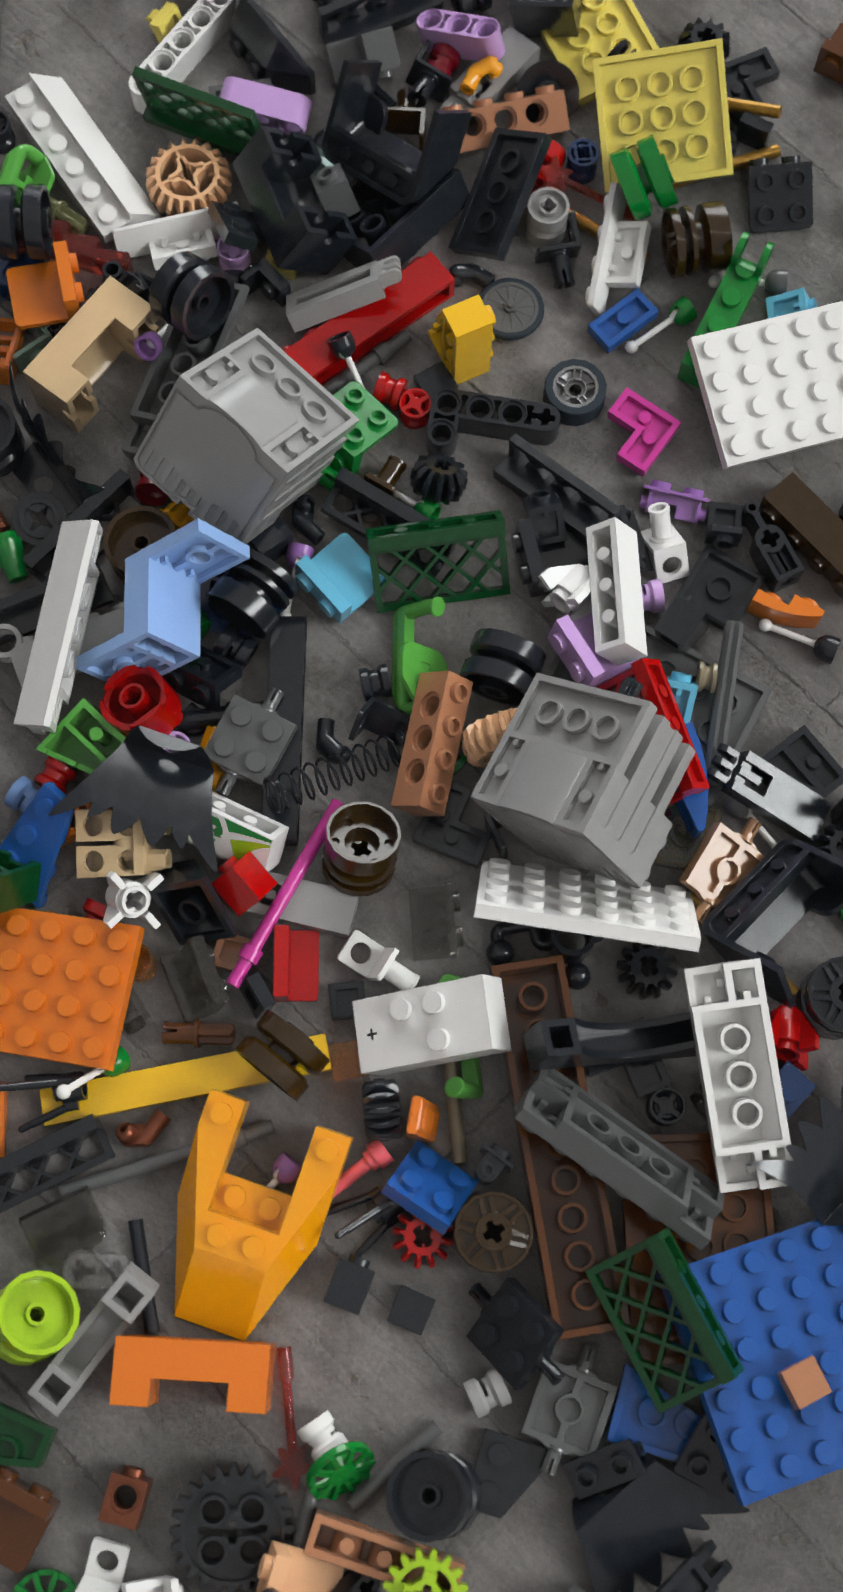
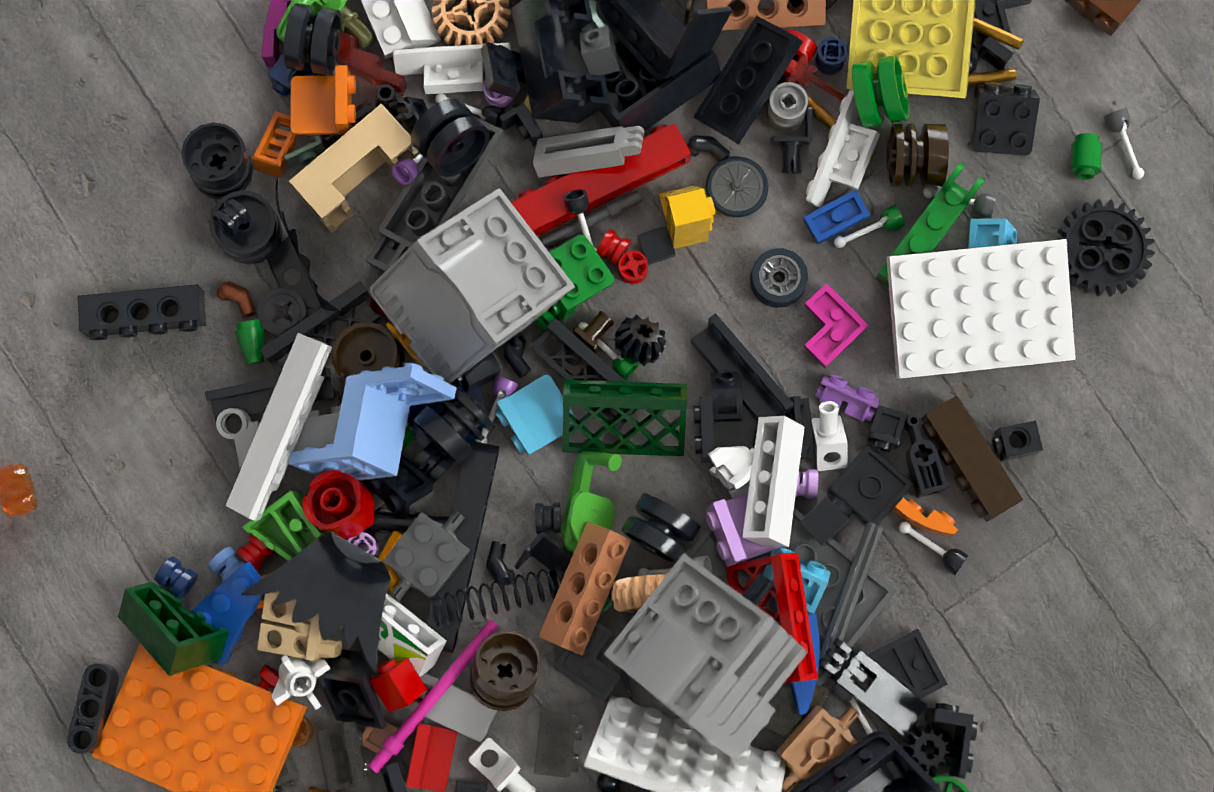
camera: 15 degrees right, 5 degrees up
(493, 424) = (699, 296): black beam -> none
(706, 676) = (839, 571): dark tan bush -> none

